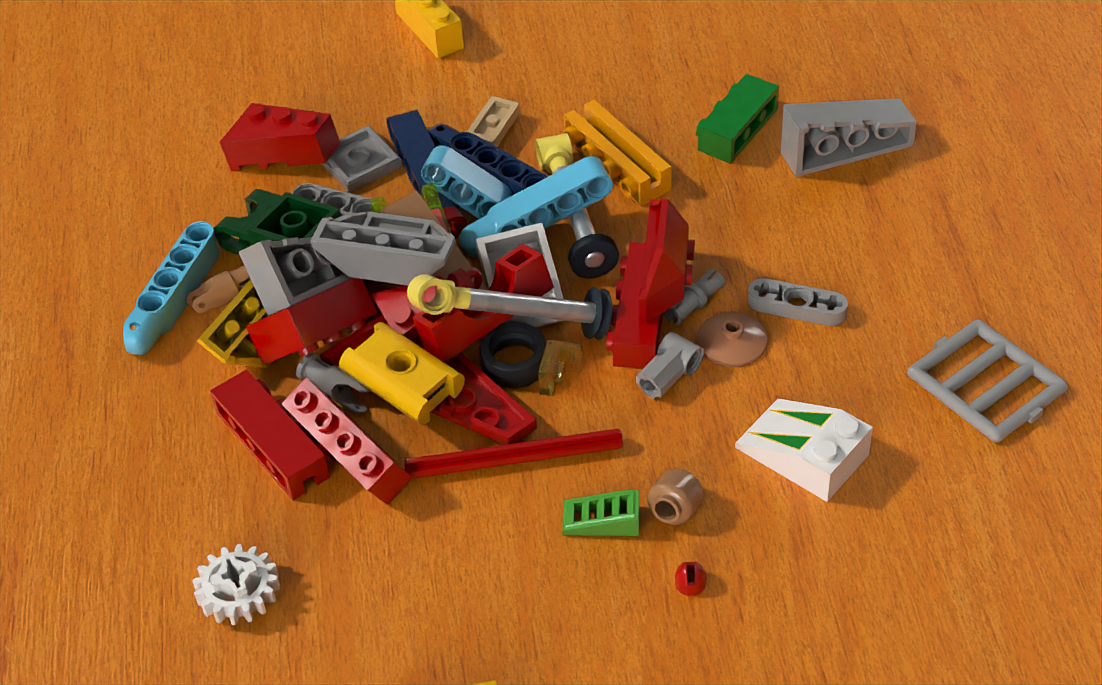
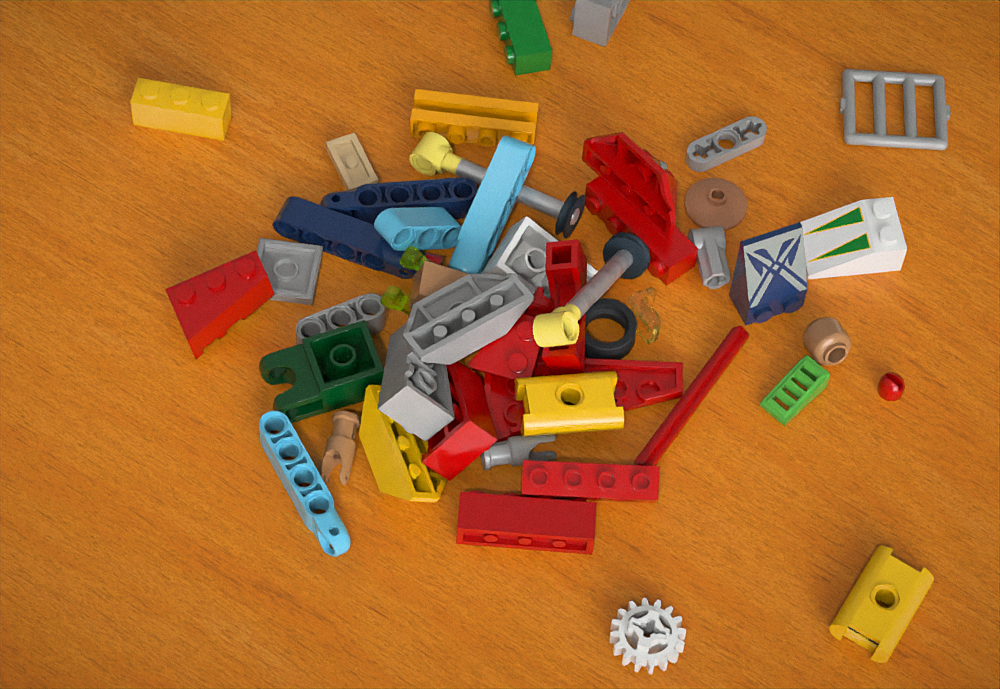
camera: 55 degrees left, 10 degrees up
(679, 401) = (770, 275): none -> dark blue slope

